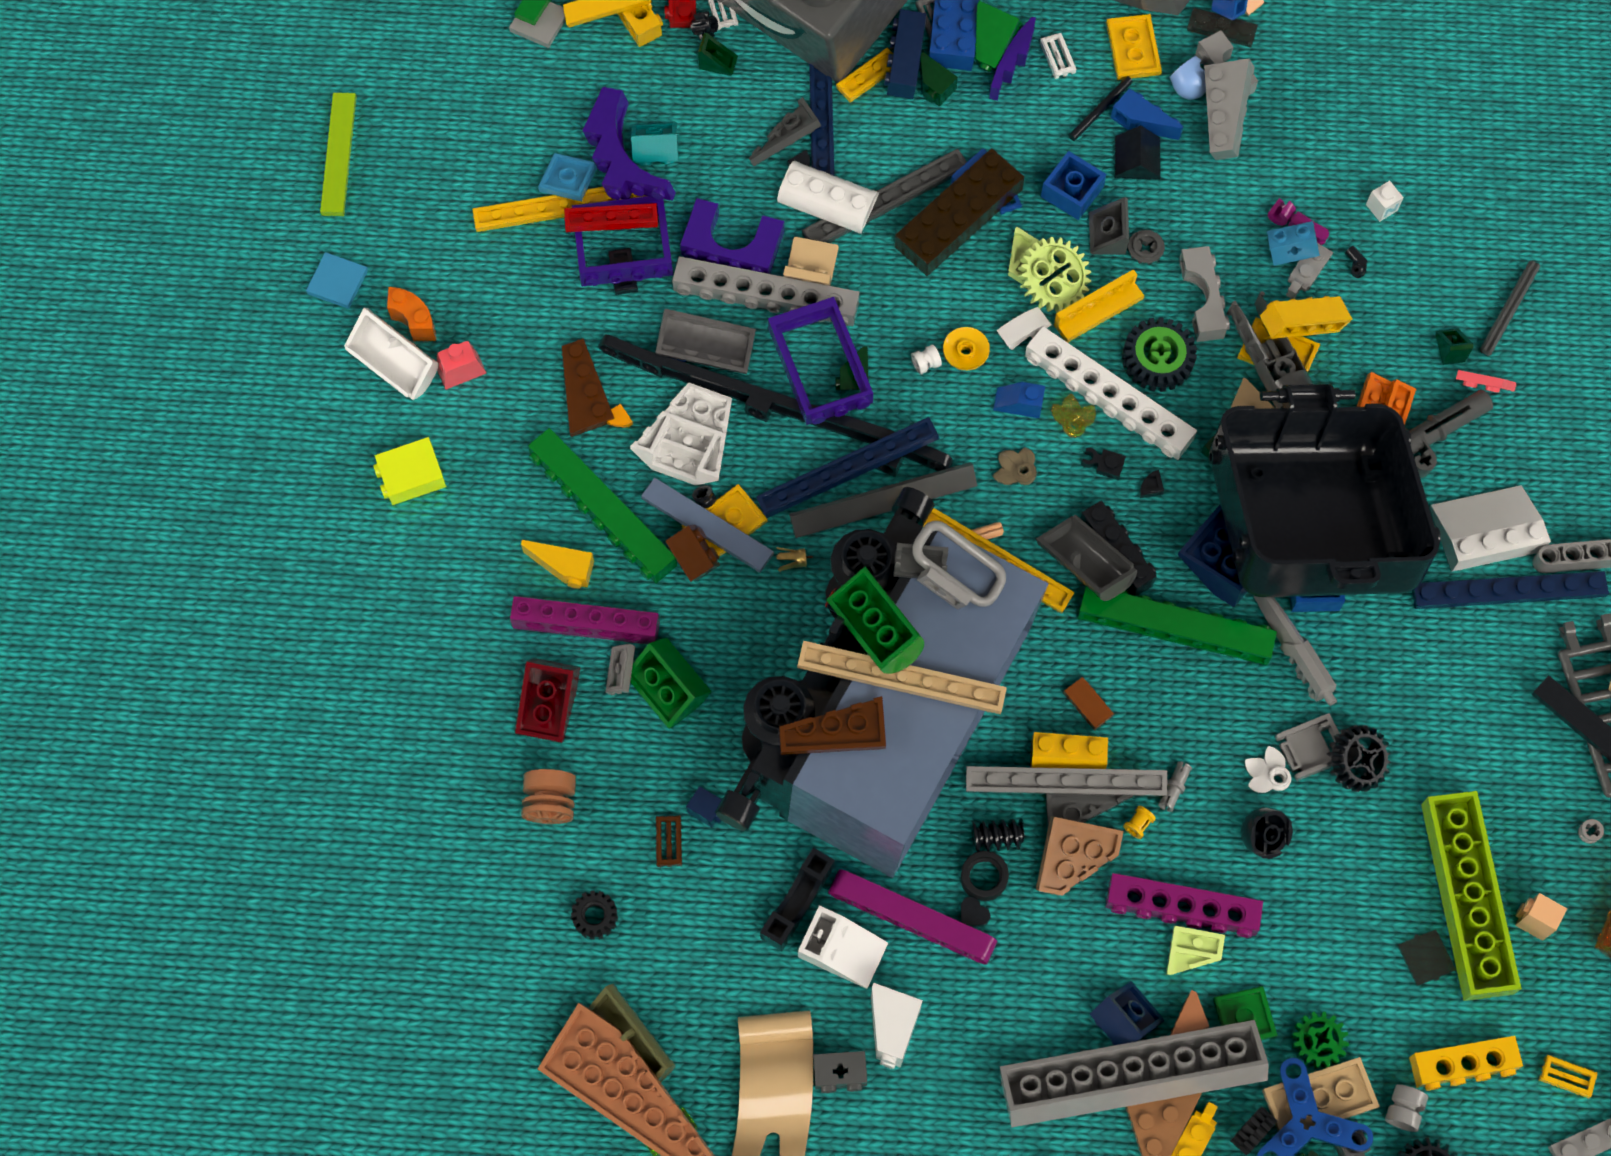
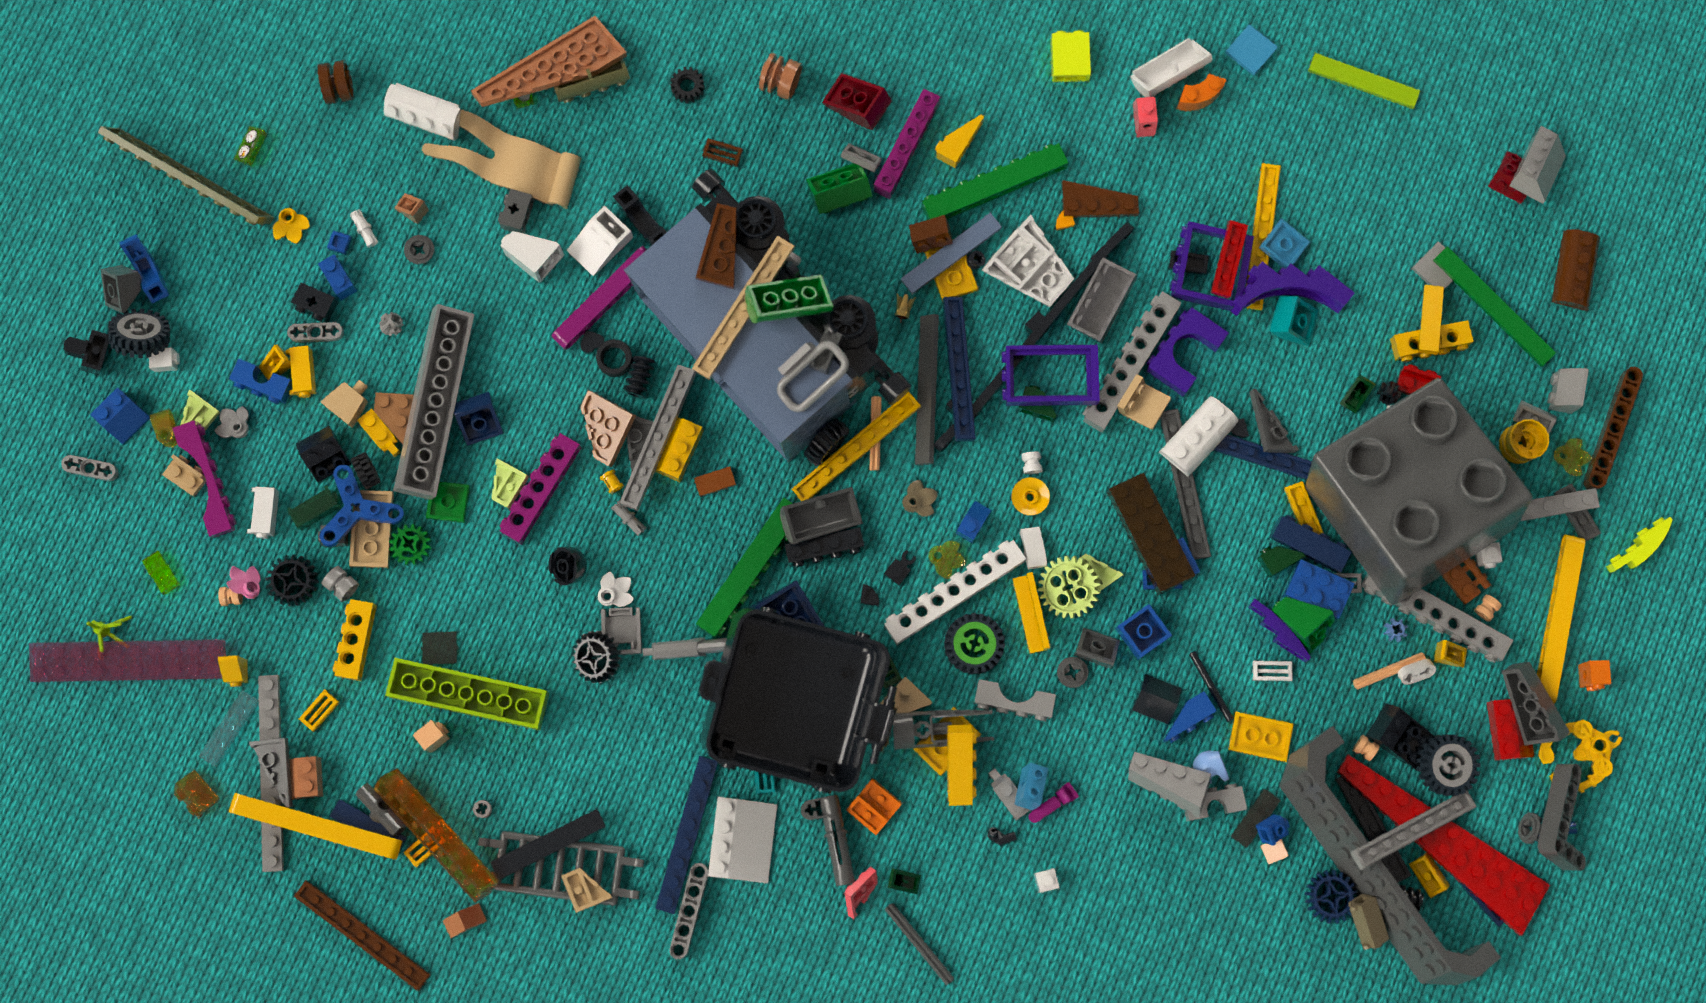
camera: 110 degrees right, 10 degrees up
(703, 807) = (737, 183): dark blue brick -> none
(1191, 1016) = (458, 461): nougat slope -> none

